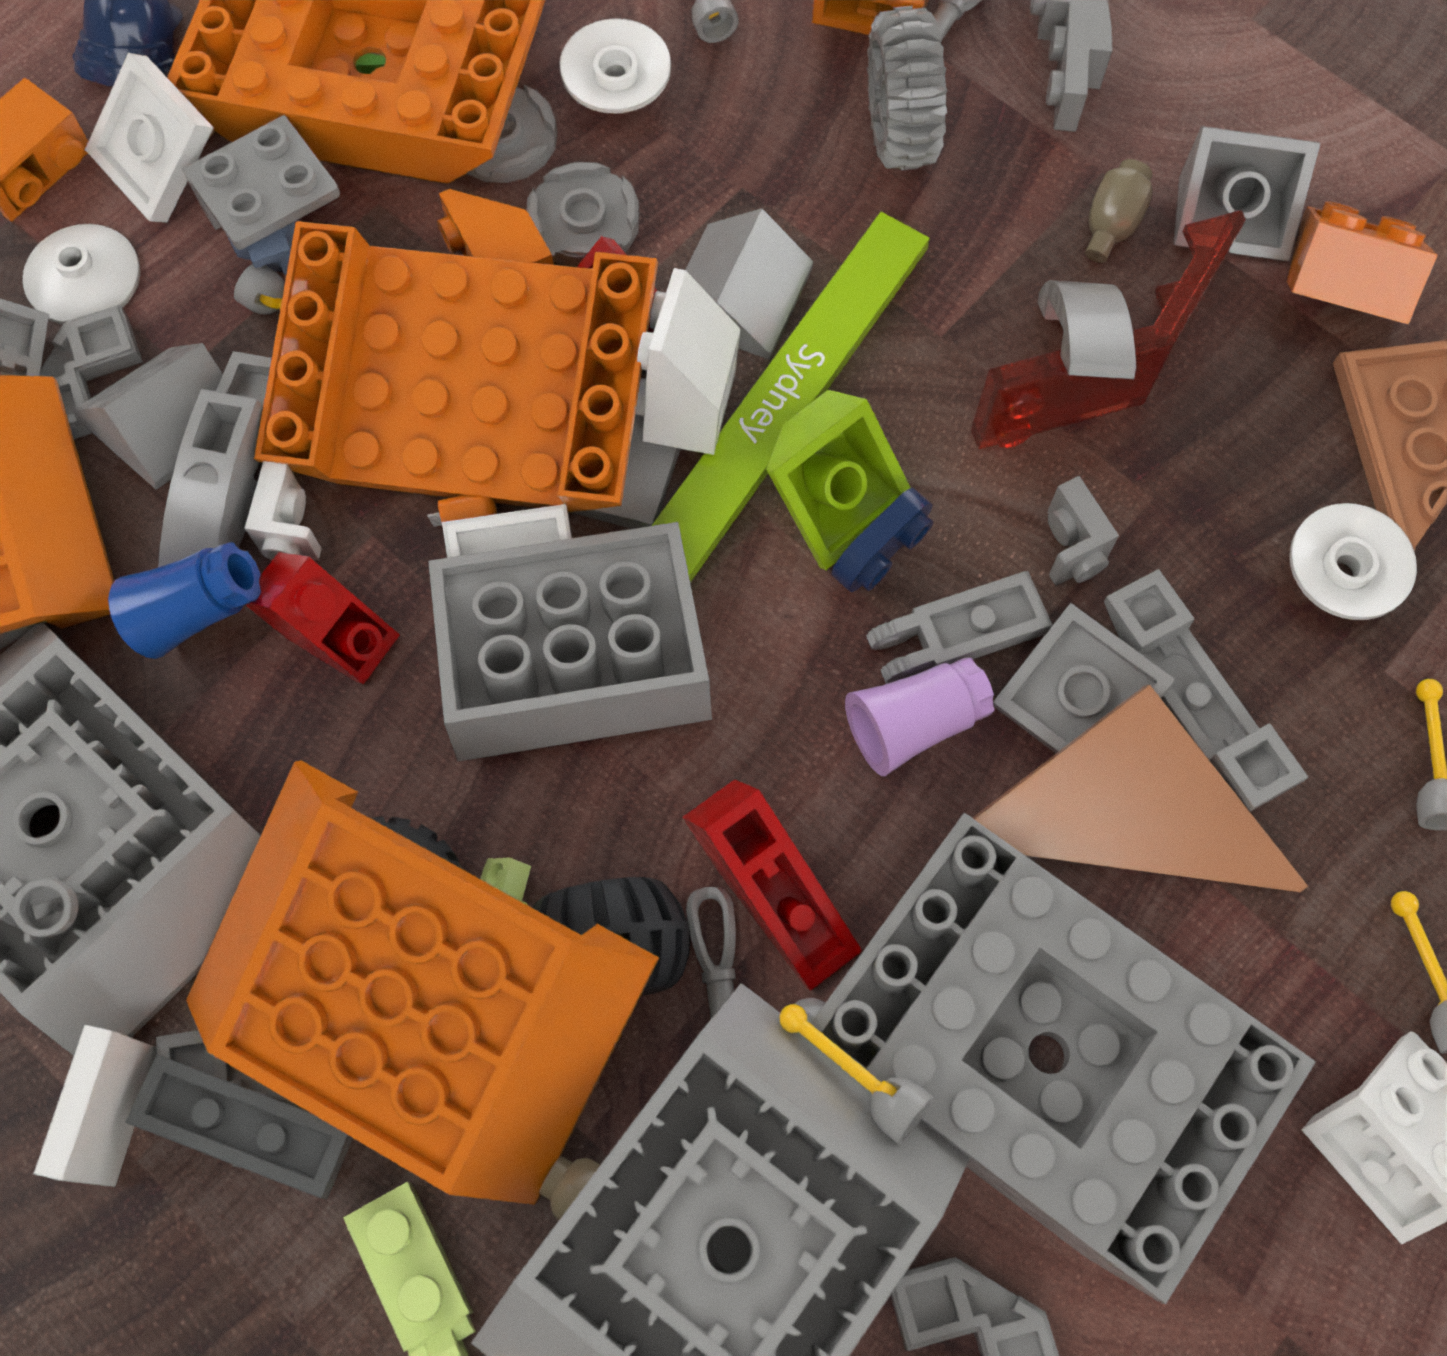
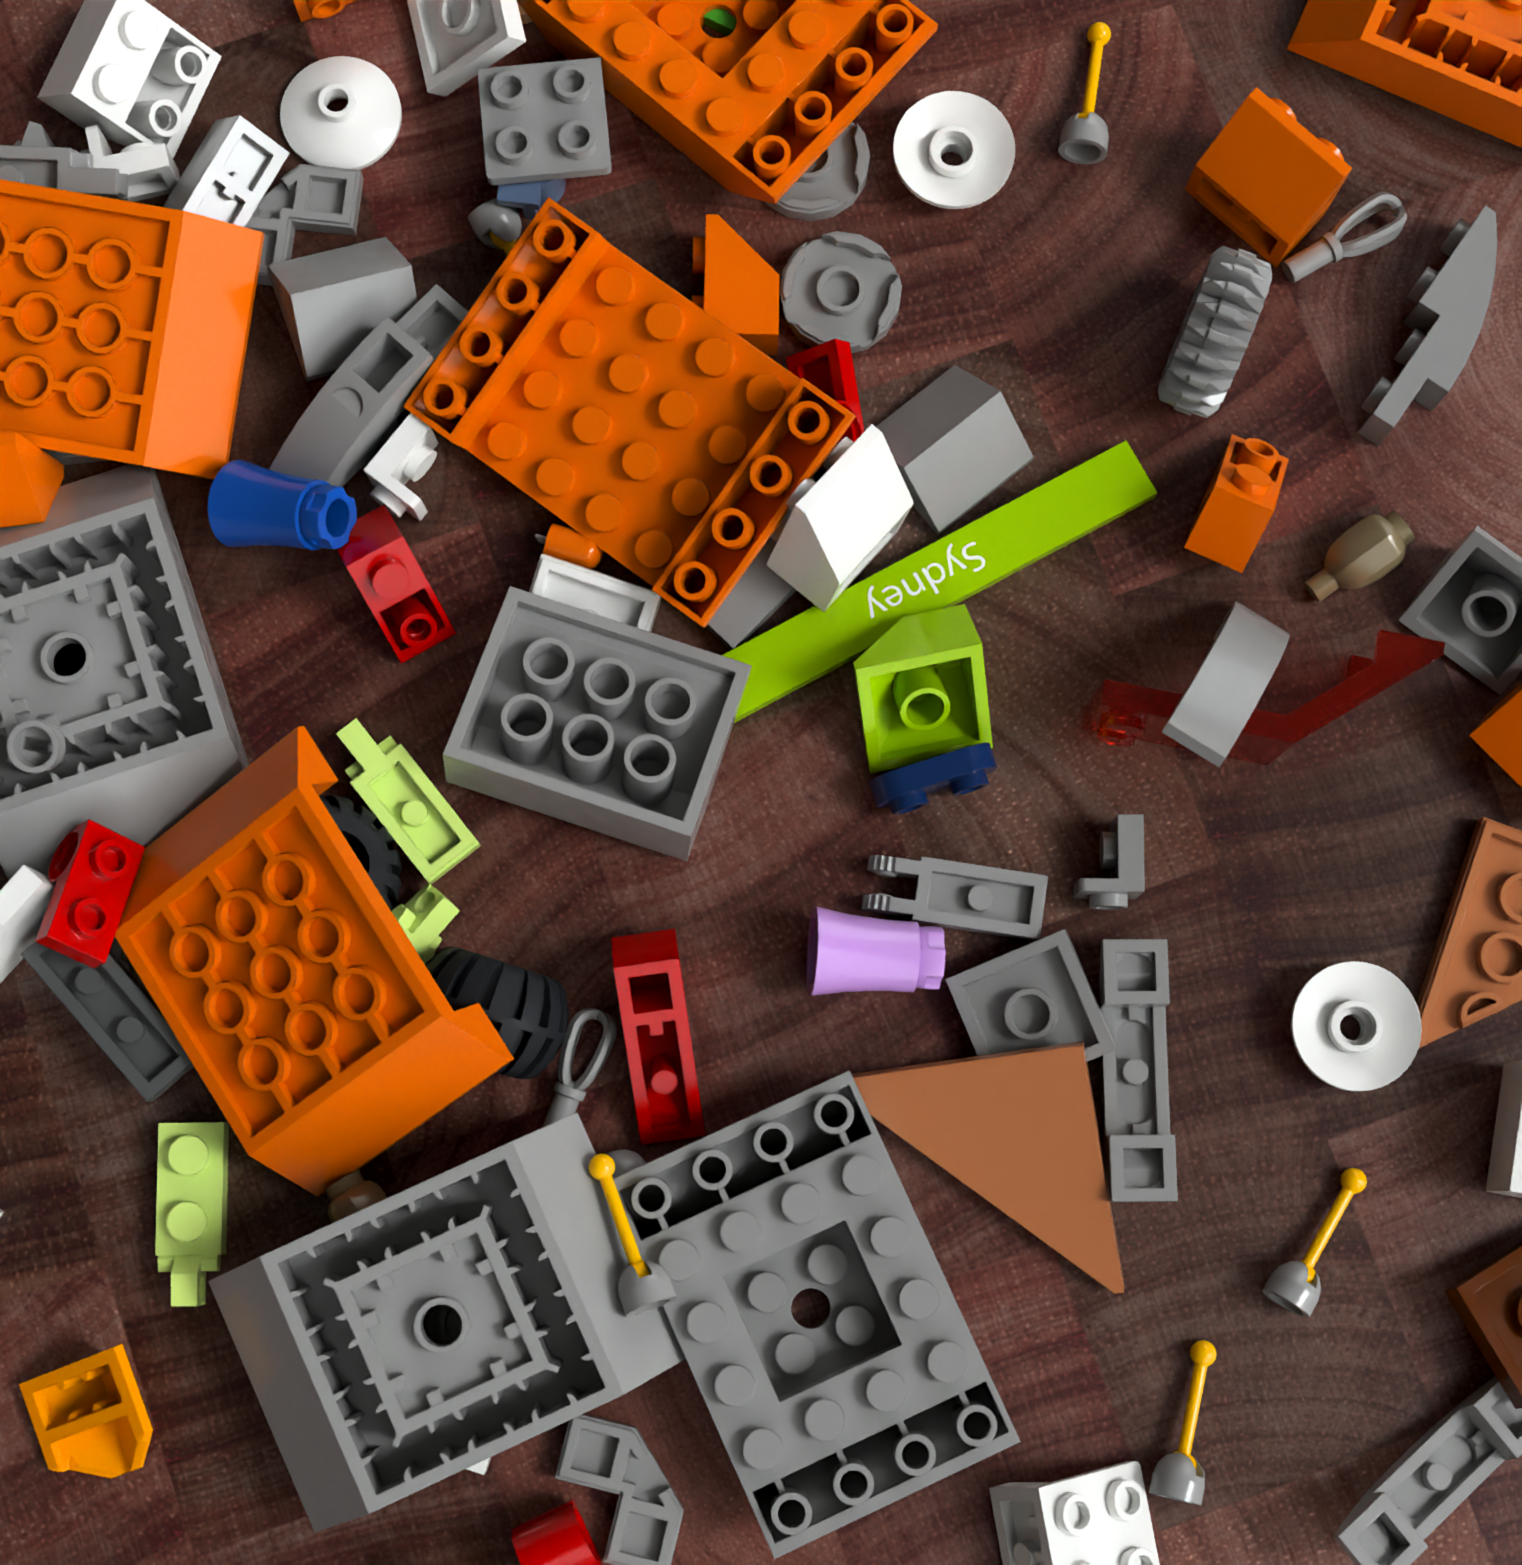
camera: 25 degrees right, 10 degrees up
(167, 1026) = (92, 882): none -> red plate
(433, 795) = (407, 803): none -> yellowish green hinge
(999, 213) = (1238, 502): none -> orange slope

